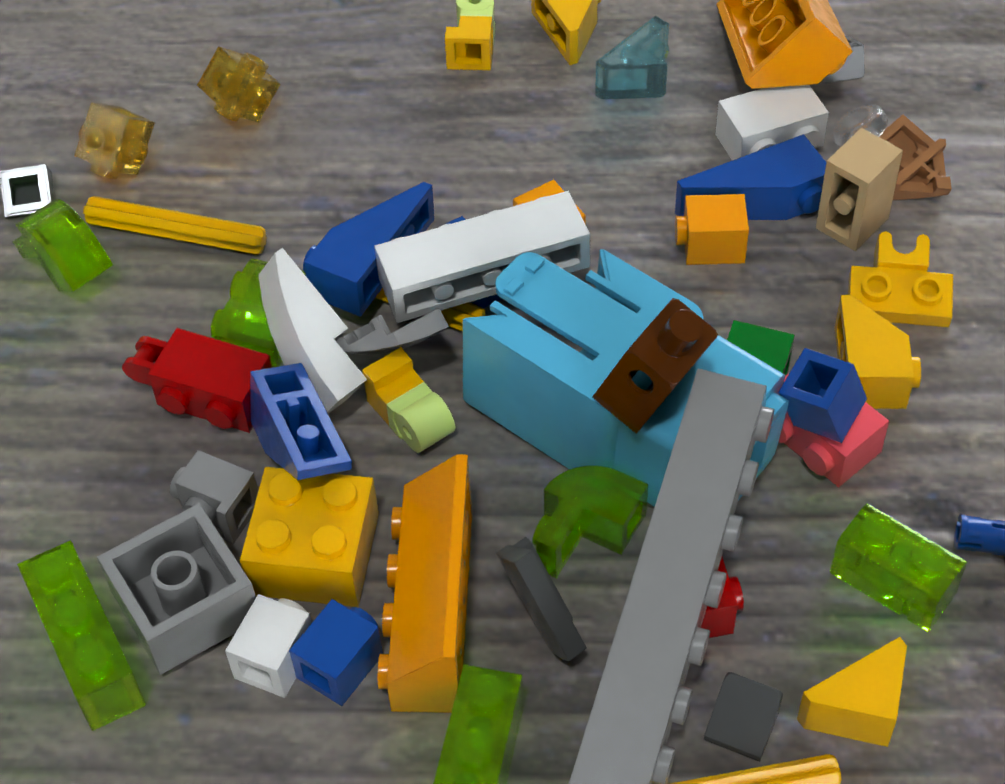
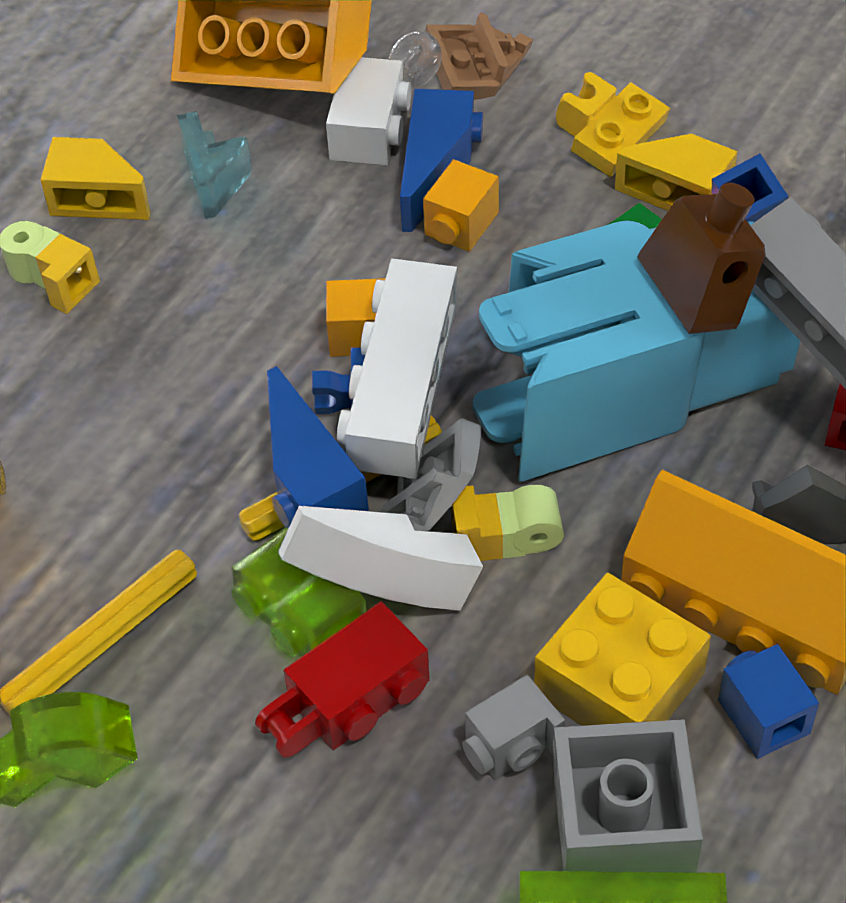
camera: 60 degrees left, 0 degrees up
(263, 642) = (730, 752): white brick -> none
(295, 423) = (500, 613): blue slope -> none
(591, 505) = (721, 440): clear neon green brick -> none
(858, 189) = (508, 84): tan brick -> none

